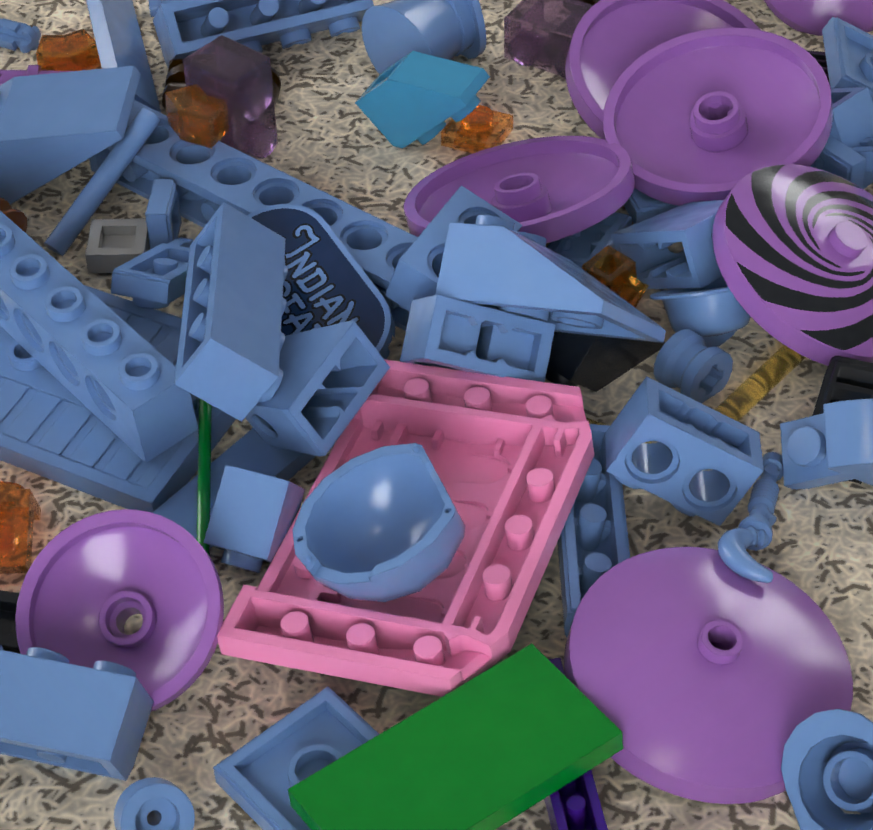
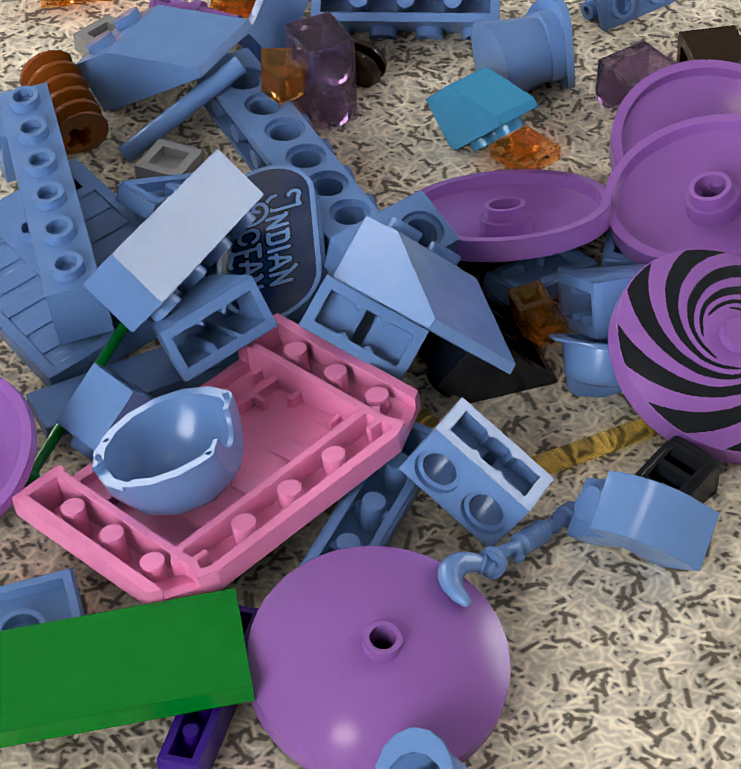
camera: 25 degrees right, 0 degrees up
(163, 212) = (218, 135): medium blue tile -> none
(692, 366) = (554, 406): medium blue wheel -> none

